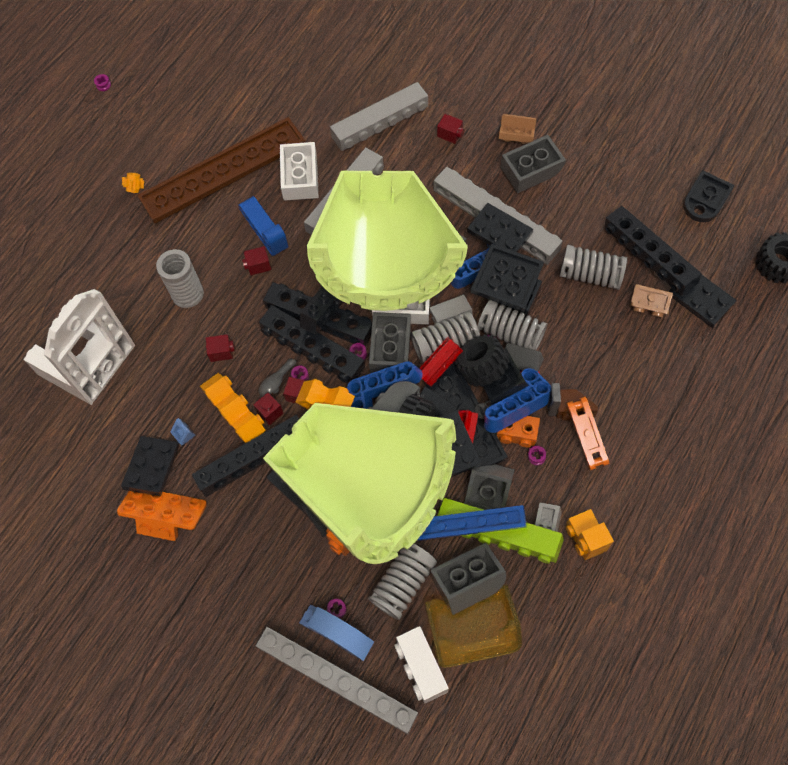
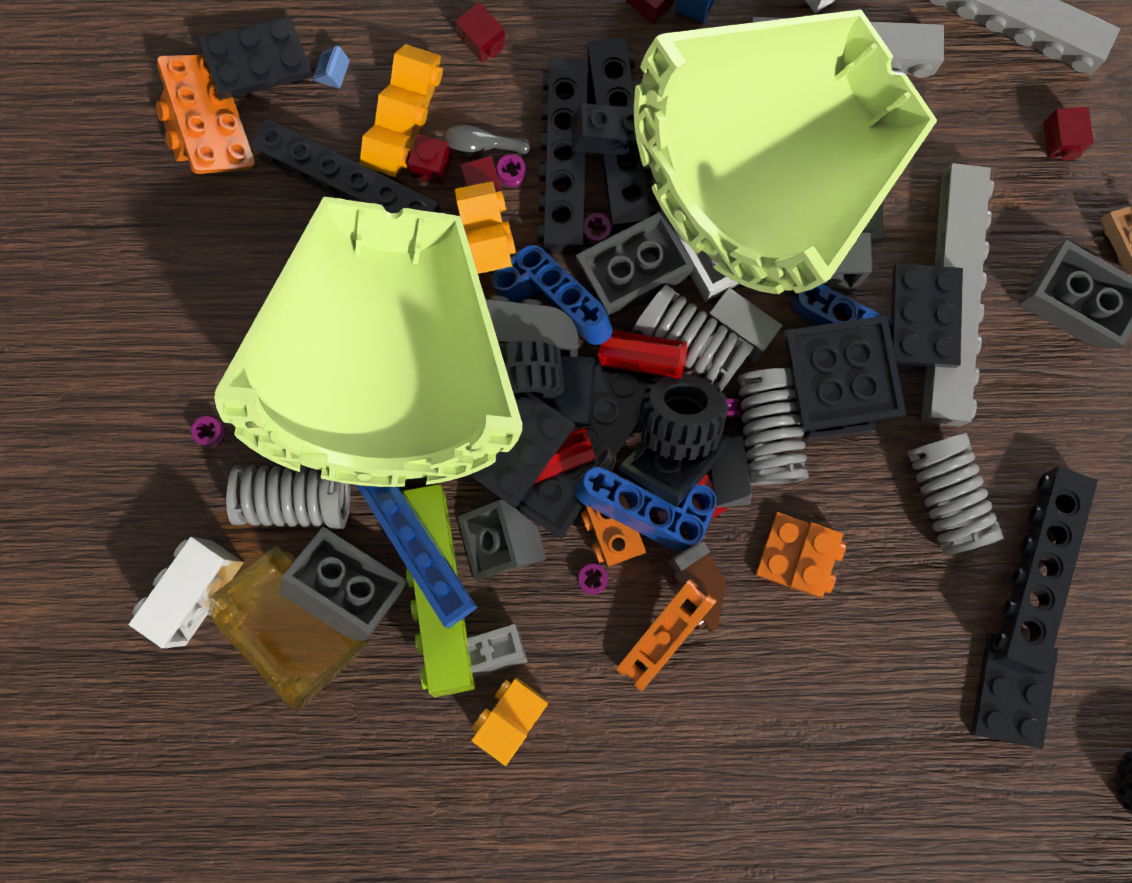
camera: 55 degrees right, 15 degrees up
(337, 631) = (165, 451): medium blue arch -> none
(337, 680) = (110, 491): light grey brick -> none
(582, 352) = (801, 555): none -> orange plate
(651, 300) = (954, 615): medium nougat bracket -> none

